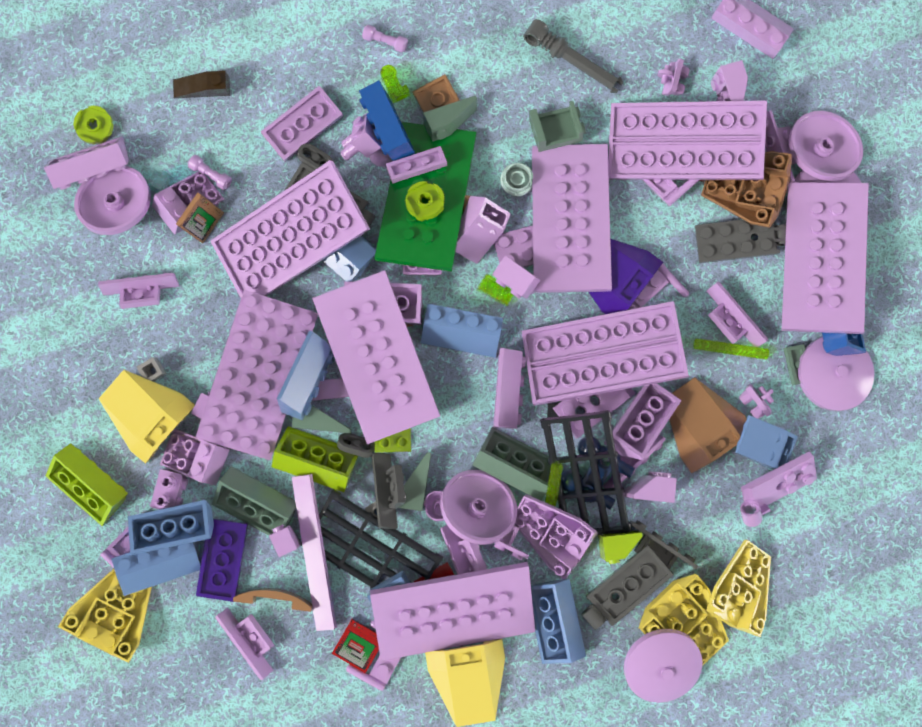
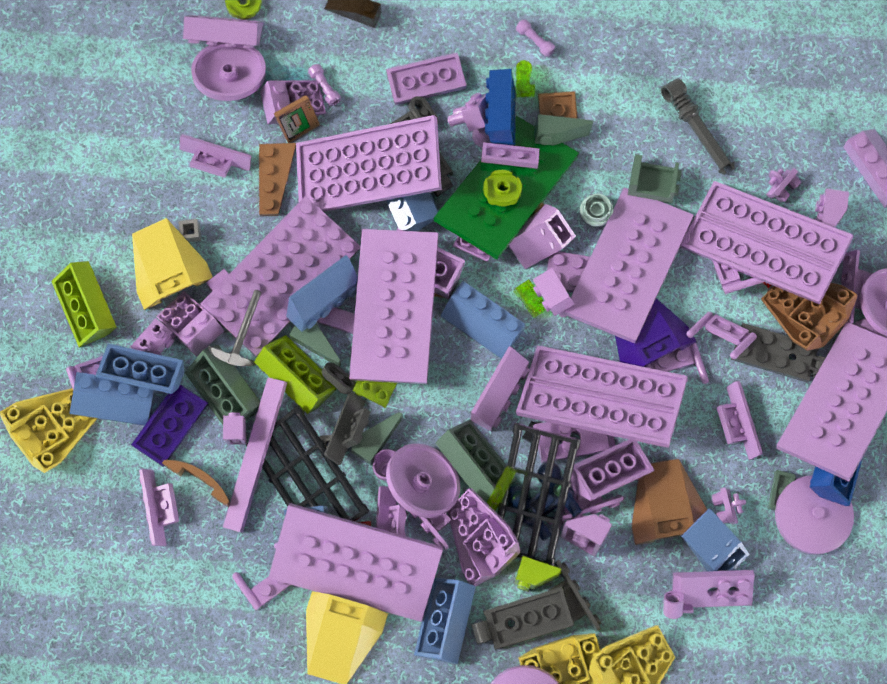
camera: 30 degrees right, 10 degrees down
(203, 278) = (274, 170): none -> medium nougat wing
(250, 473) = (233, 357): none -> piece
(357, 646) = (252, 558): tile -> none
(685, 240) = (725, 330): none -> lavender plate
(732, 349) = (725, 449): clear neon green axle -> none

